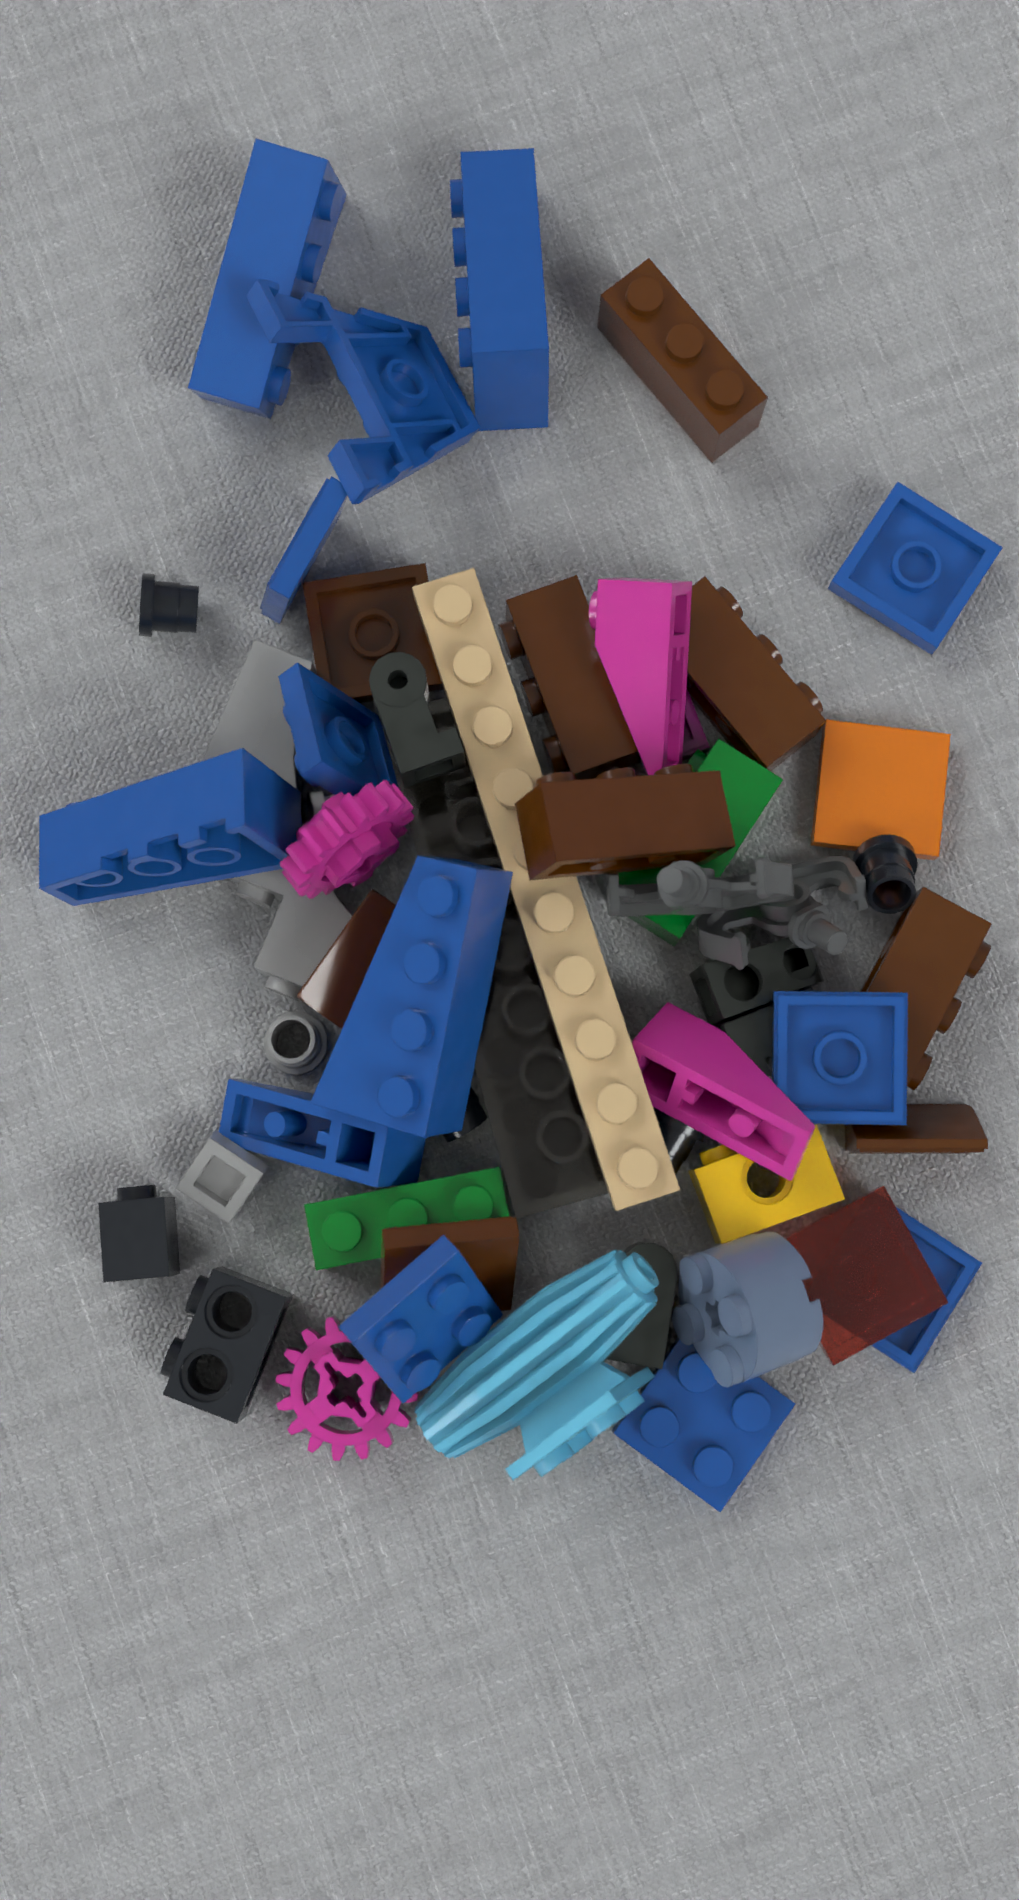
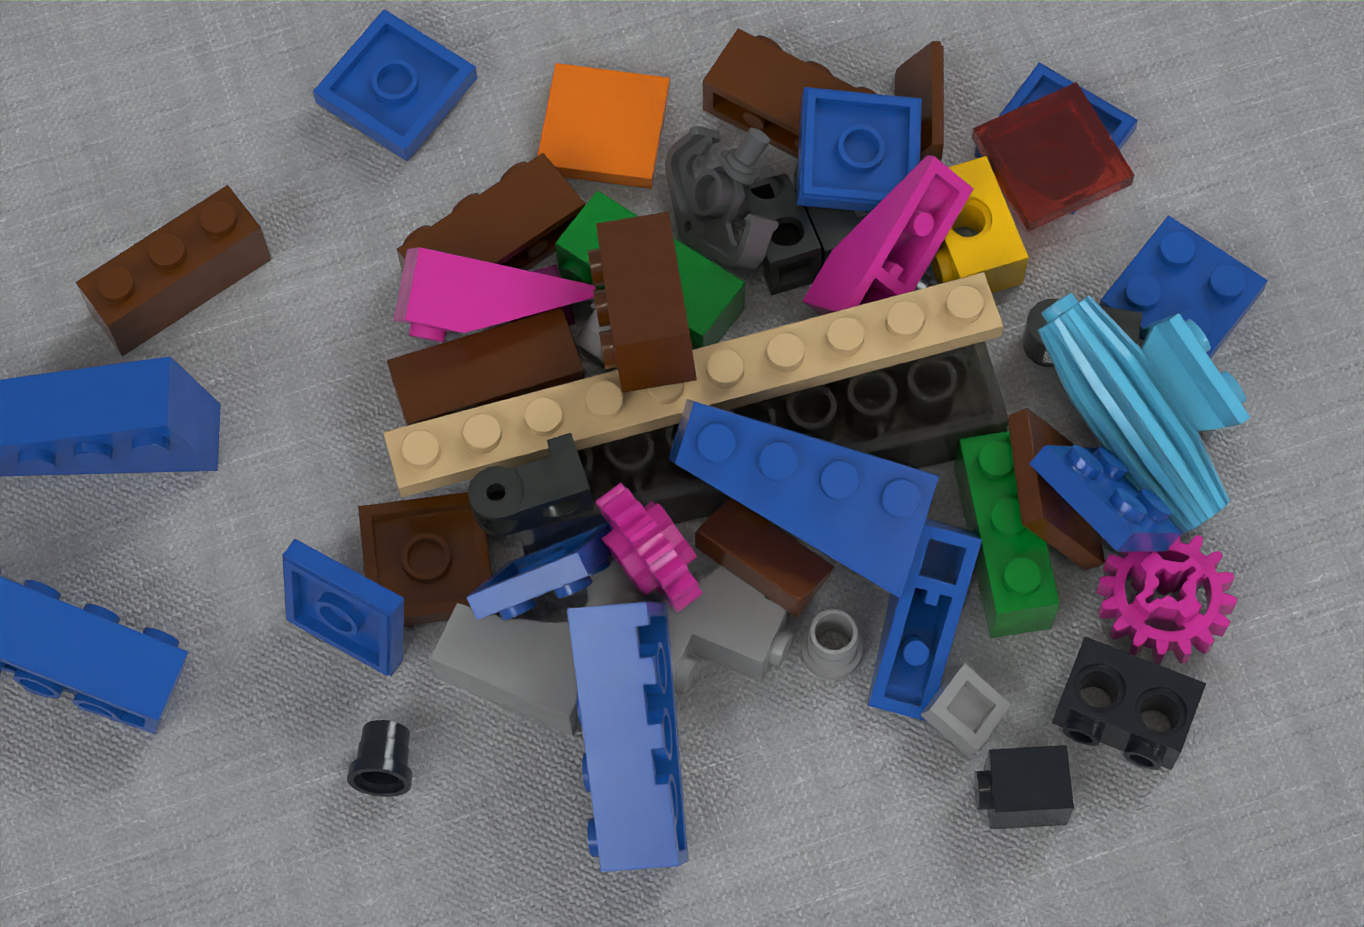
camera: 85 degrees left, 15 degrees down
(392, 377) = (173, 521): blue wing -> none
(695, 890) = (707, 247): dark grey piece -> none
(747, 1307) = (1086, 234): sand blue brick -> none
(889, 872) = (677, 112): black piece -> none

